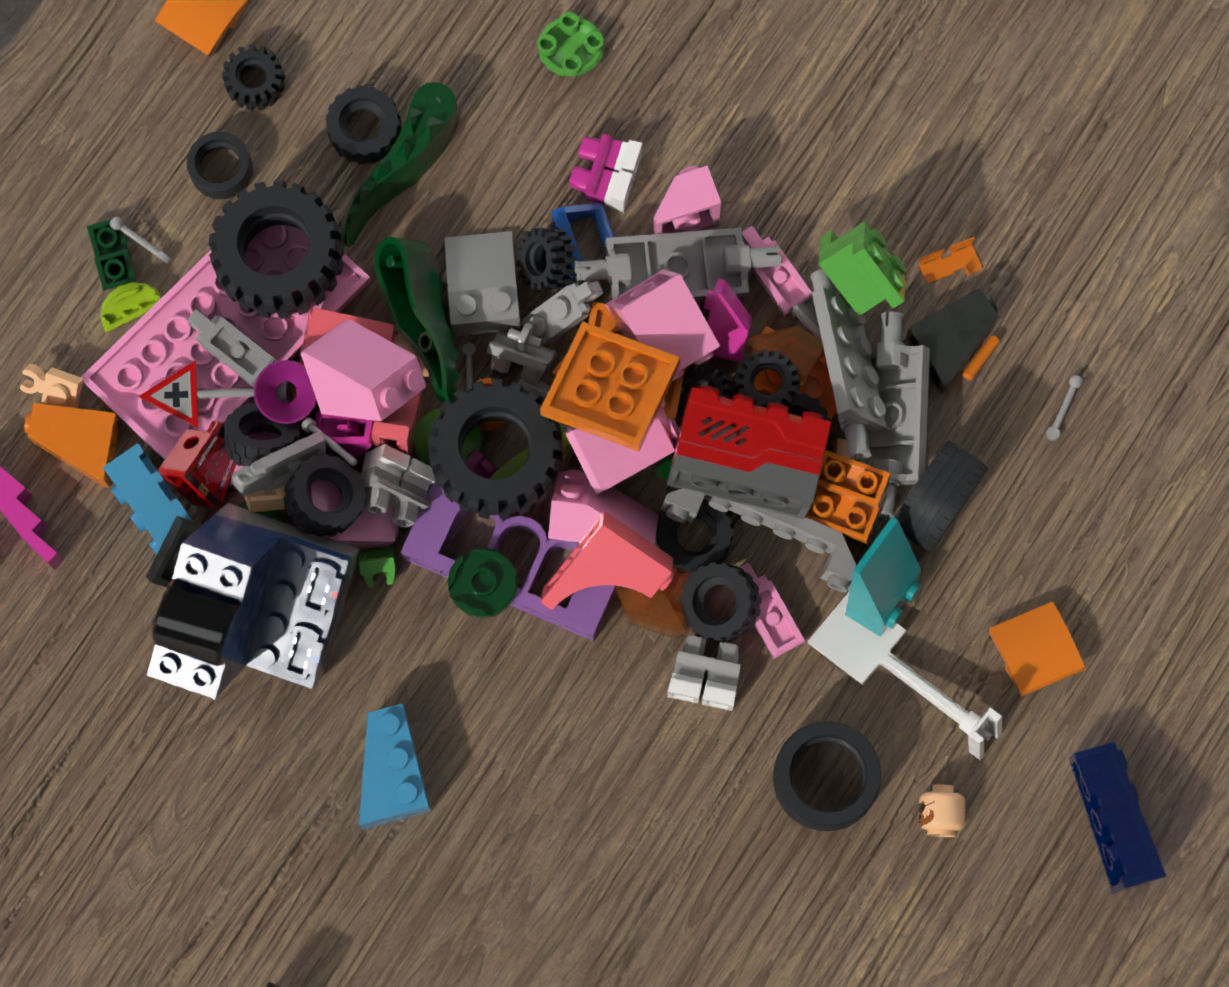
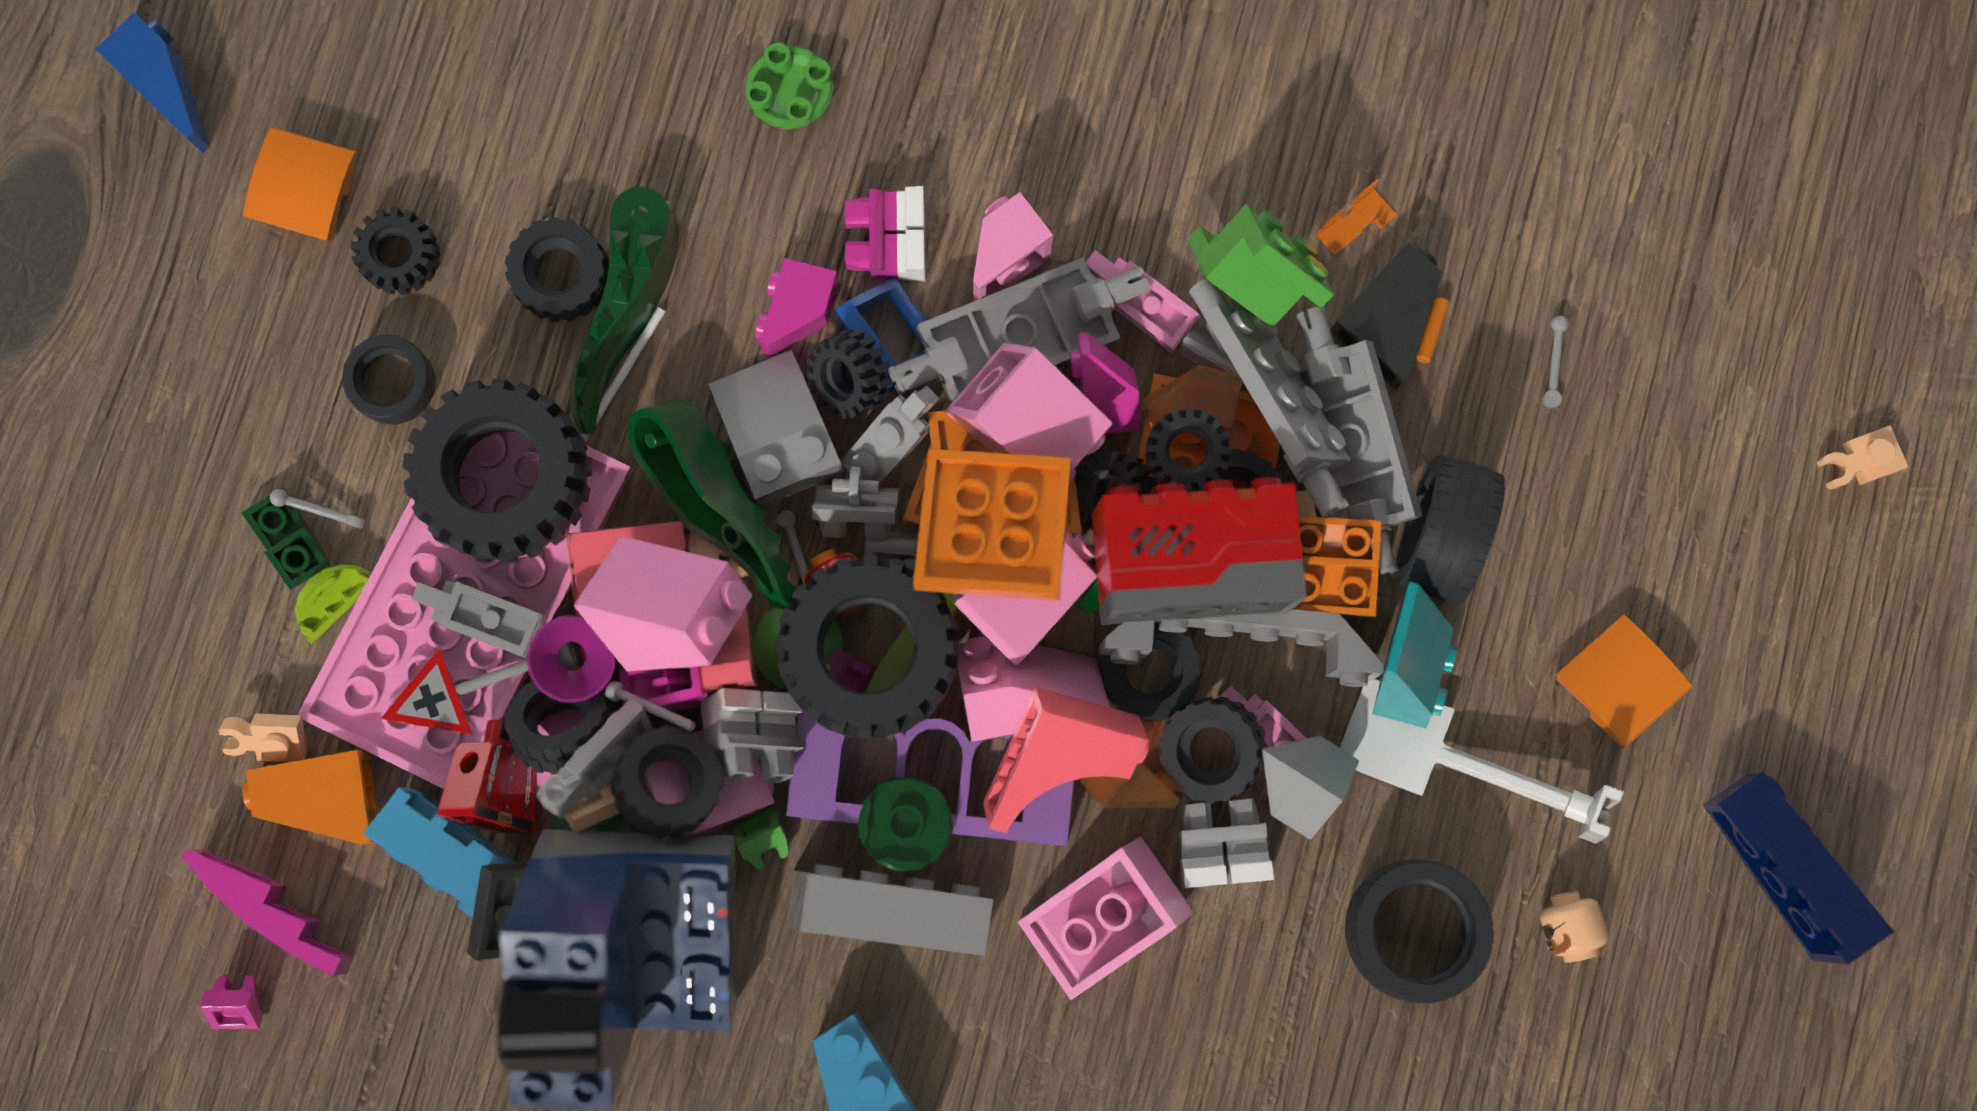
camera: 20 degrees left, 5 degrees up
(392, 206) = (629, 362): none -> white axle
(452, 642) = (889, 912): none -> light grey wedge
(527, 200) = (799, 305): none -> dark pink slope
(605, 697) = (1106, 917): none -> bright pink slope
(778, 643) = (1307, 782): none -> light grey slope

